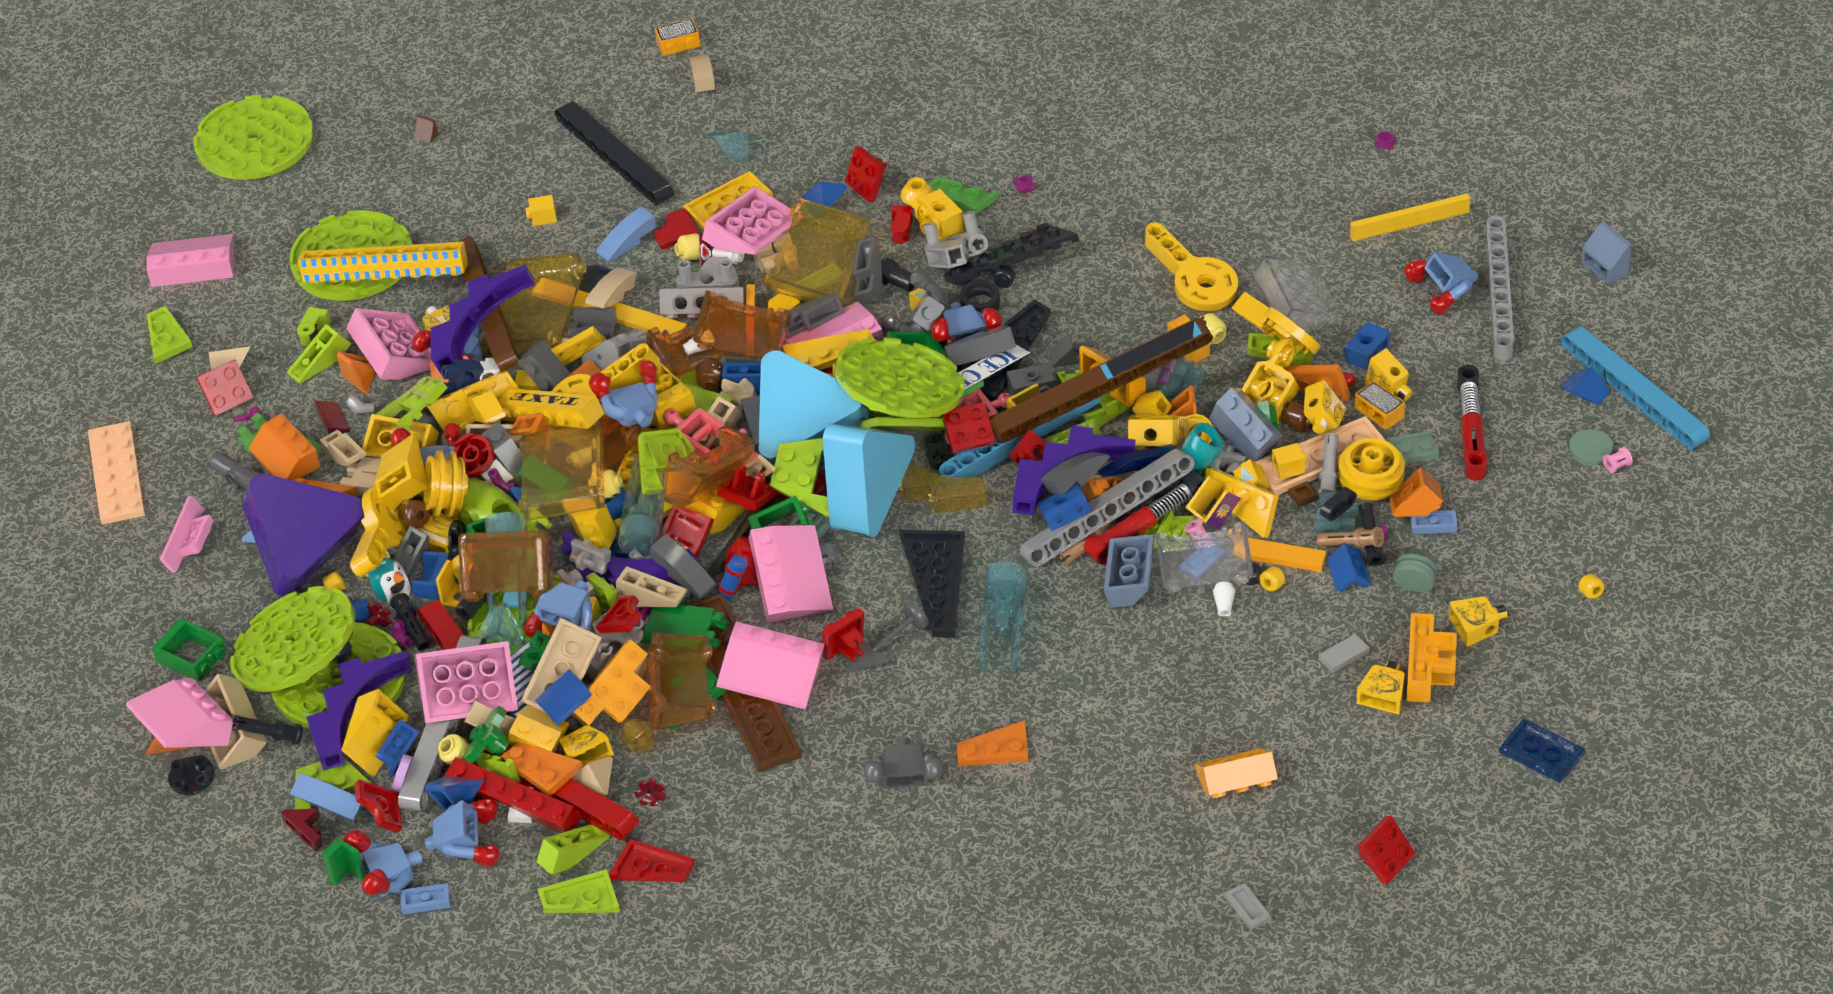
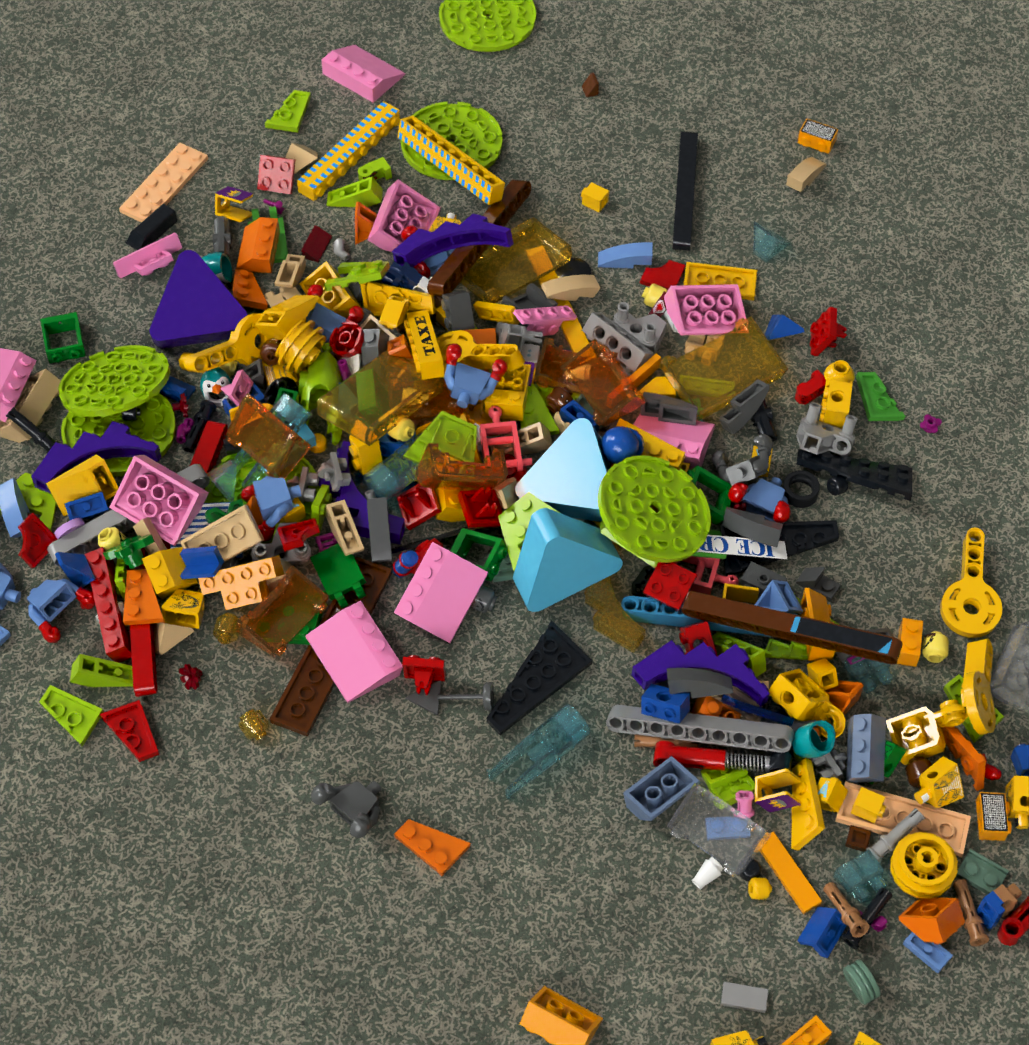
camera: 40 degrees right, 10 degrees up
(156, 510) = (152, 227): none -> black piece
(220, 446) = (230, 212): none -> yellow piece
(266, 326) = (348, 151): none -> yellow brick
(420, 565) = (238, 388): none -> bright pink slope
(622, 321) = (545, 318): none -> bright pink bracket
(749, 780) = (253, 724): none -> clear yellow head
(818, 353) = (621, 443): none -> blue tile
(1057, 374) = (779, 597): none -> medium blue slope
(1338, 504) = (862, 874): black beam -> none
(1446, 480) = (973, 922): none -> medium nougat pin
(1450, 454) = (998, 904): none -> hips

